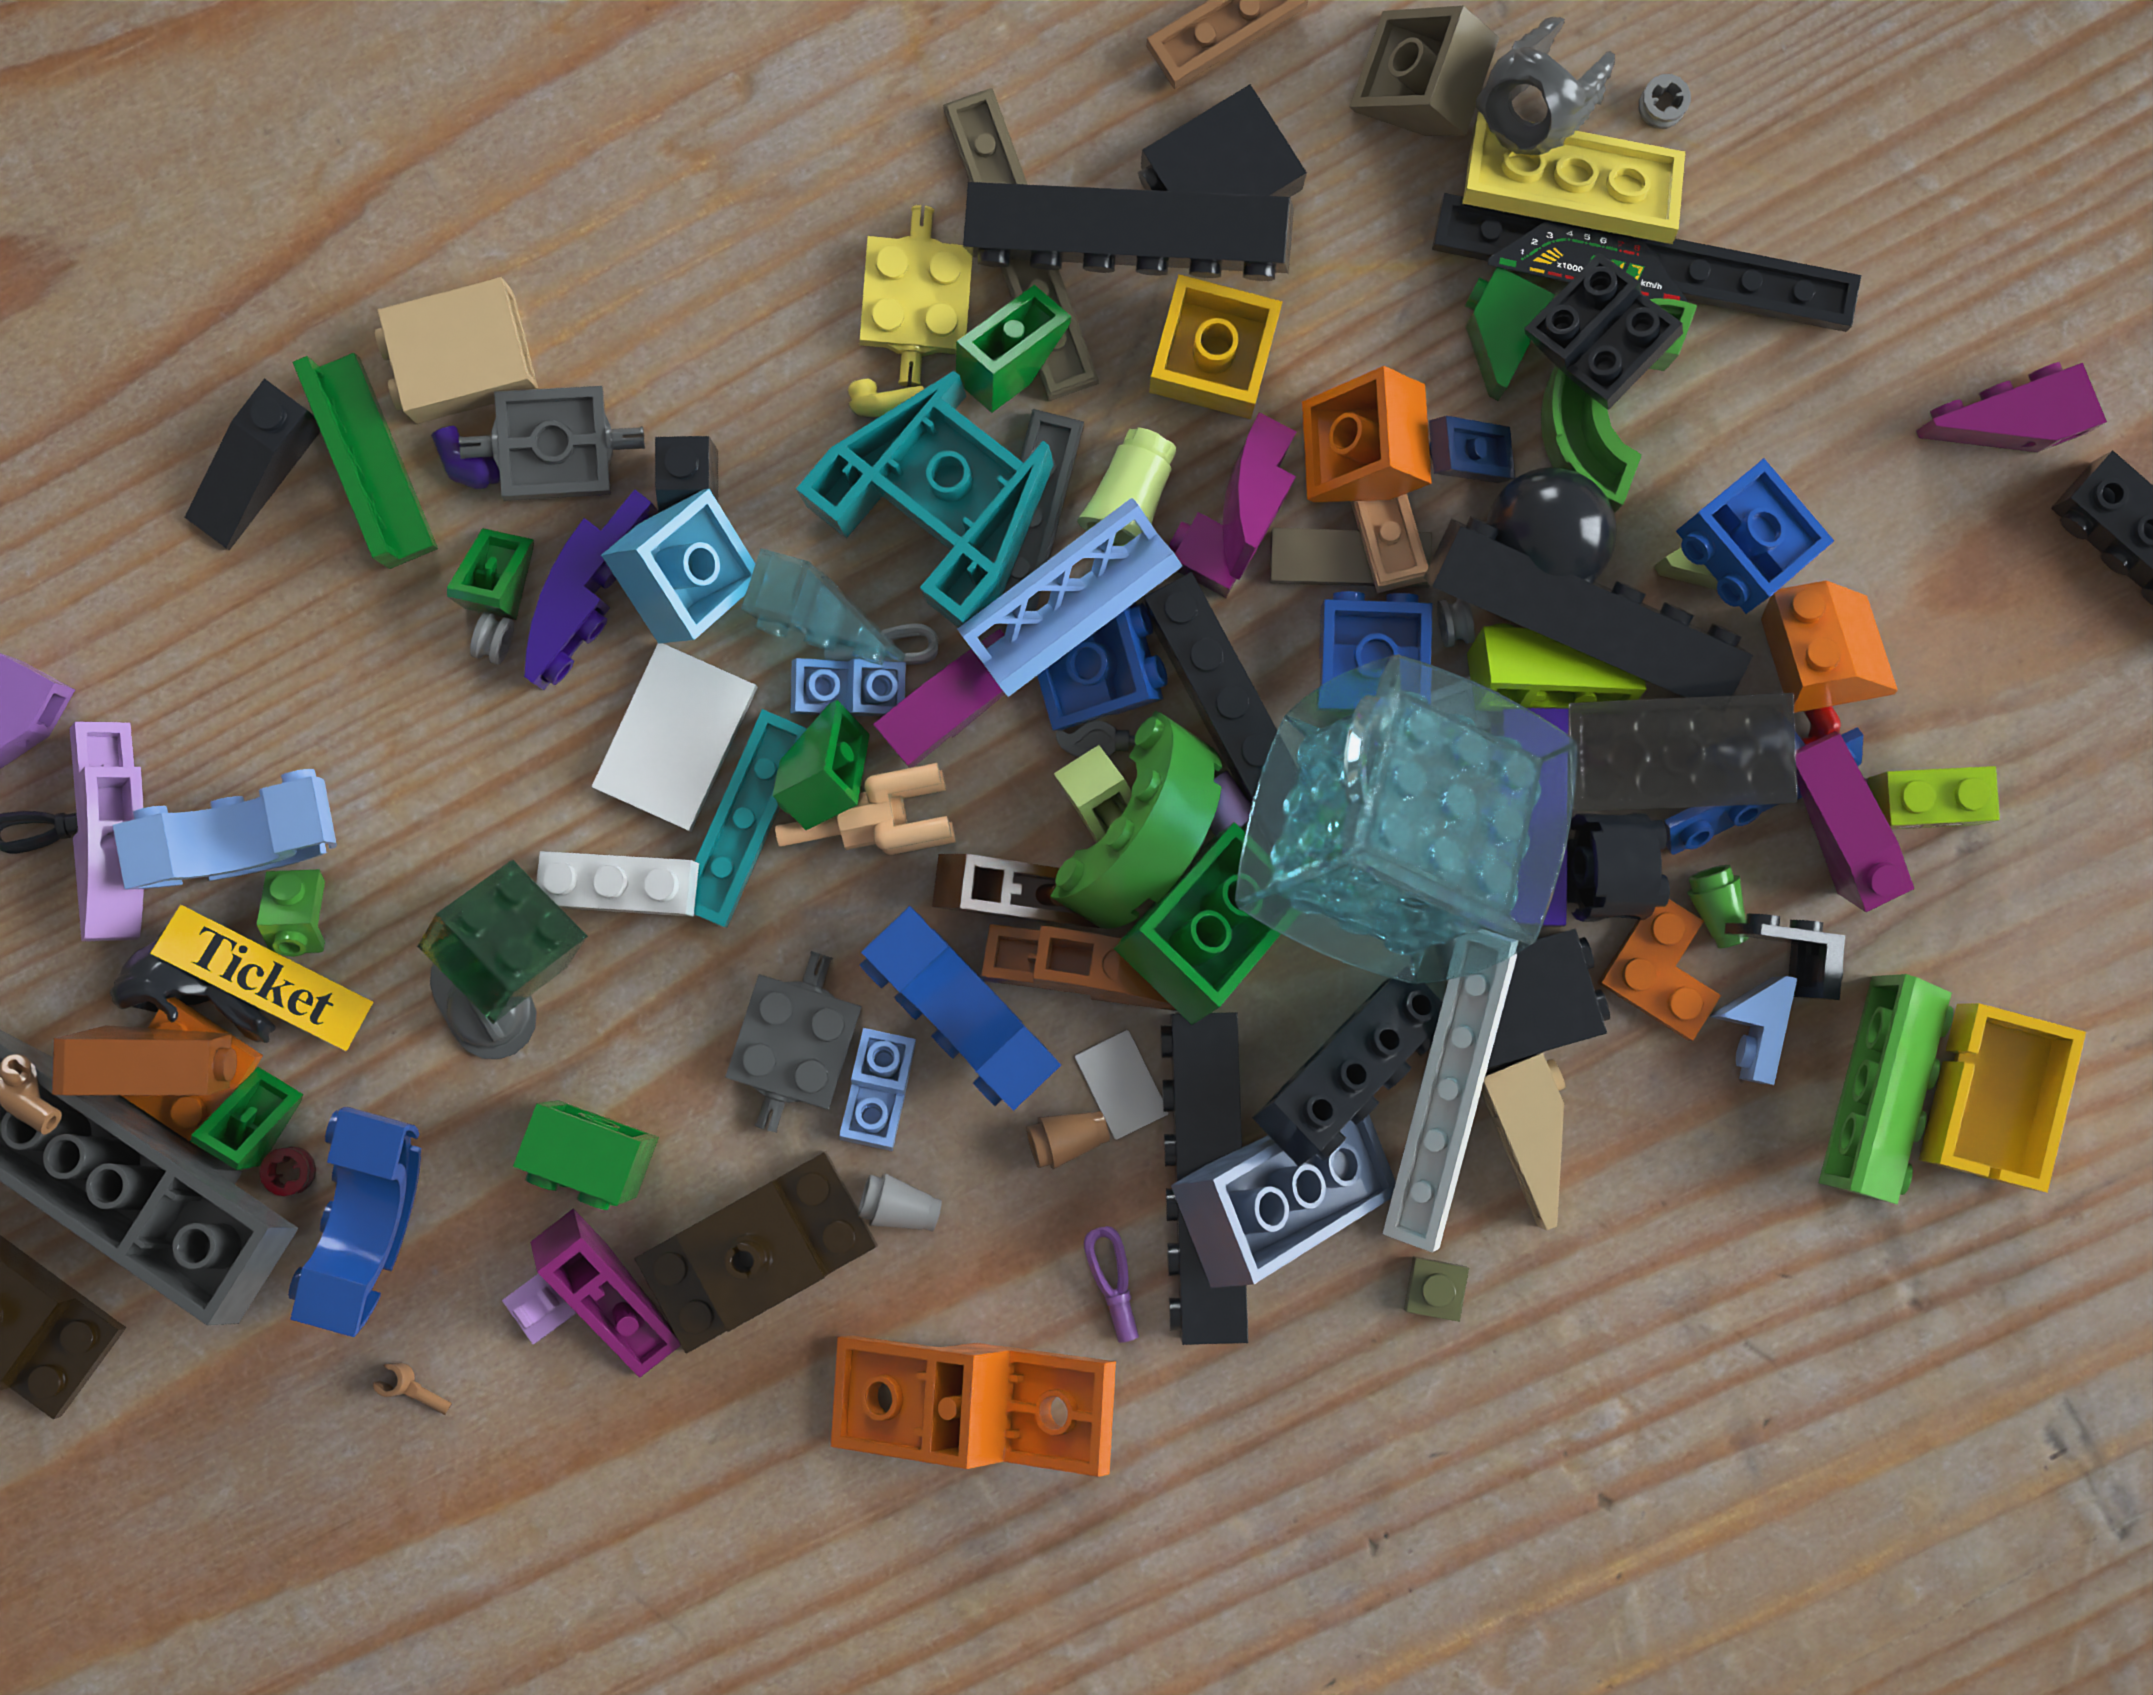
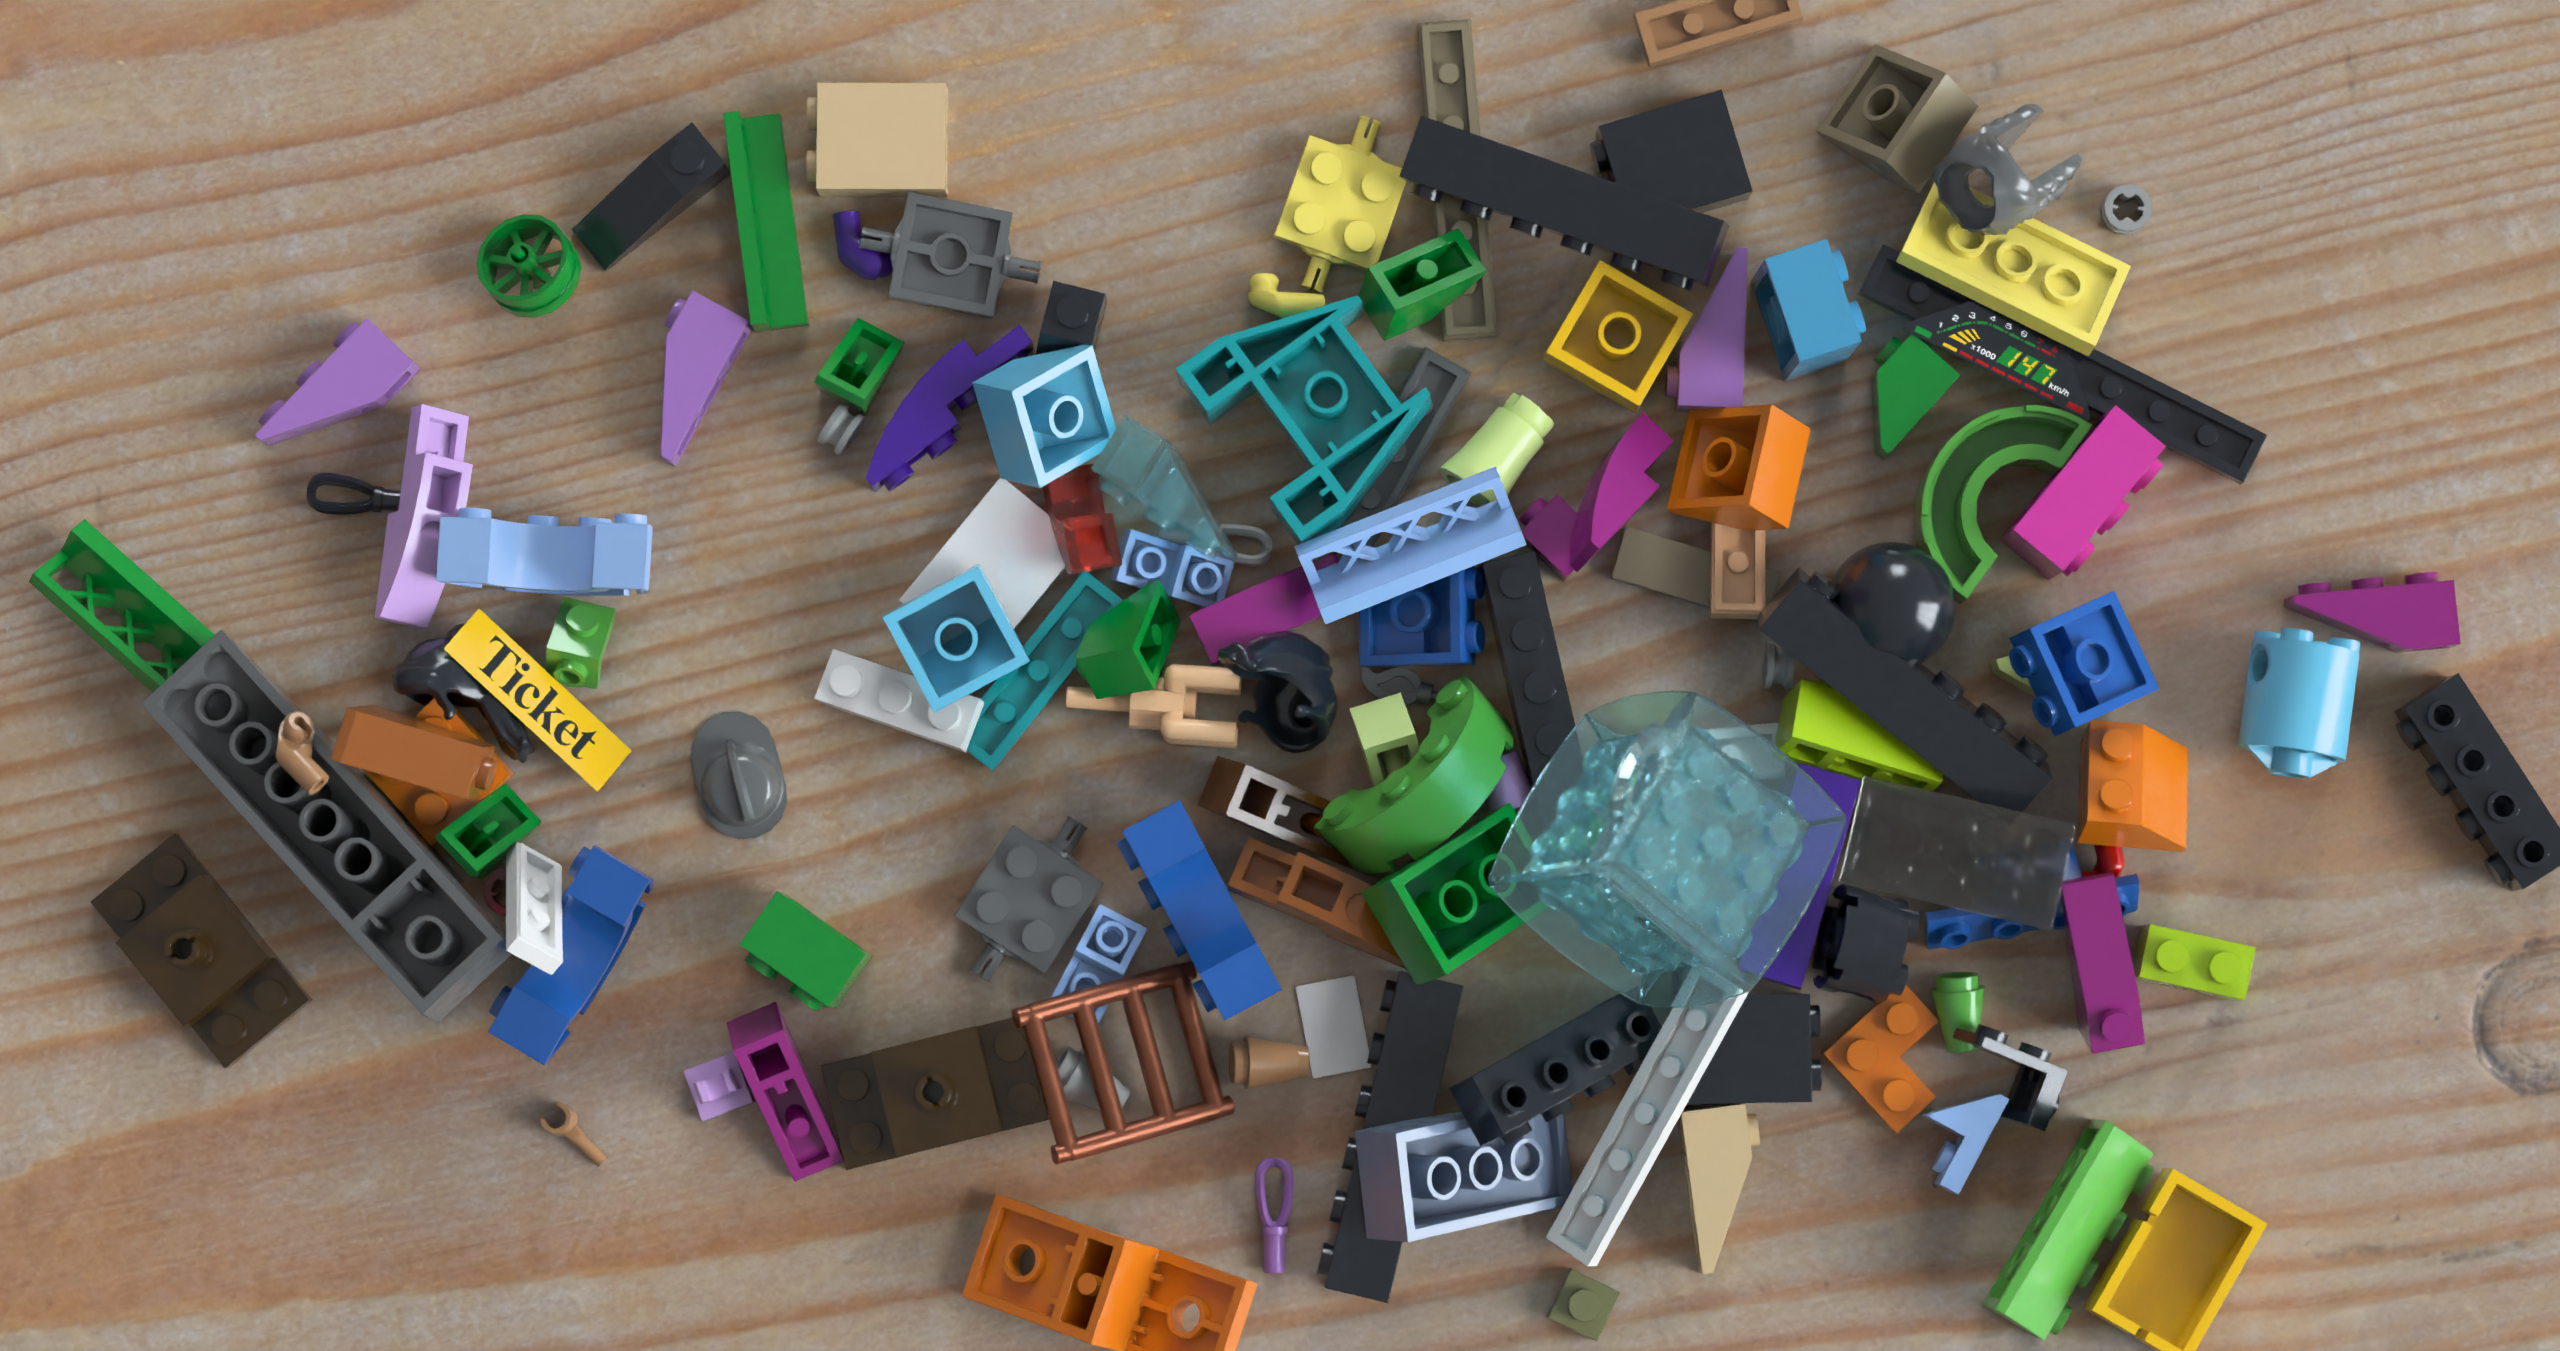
camera: 10 degrees right, 0 degrees up
(162, 579) = (528, 266): none -> green wheel
(304, 1186) = (534, 908): none -> white tile
(335, 608) = (697, 359): none -> medium lavender slope
(502, 941) = (778, 727): clear green brick -> none
(650, 806) = (956, 638): none -> medium azure slope
(746, 664) = (1079, 521): none -> clear red slope
(870, 1132) = (1165, 1117): none -> copper bar
(992, 769) = (1291, 688): none -> black piece
(1311, 343) = (1712, 358): none -> medium lavender slope
(1366, 631) = (1695, 659): blue plate -> none
(1392, 265) = (1808, 309): none -> dark azure brick
(1471, 449) = (1839, 504): dark blue plate -> none
(1603, 331) = (1992, 427): black slope -> none
(1708, 377) = (2085, 495): none -> dark pink brick
(1967, 518) = (2298, 701): none -> medium azure cylinder

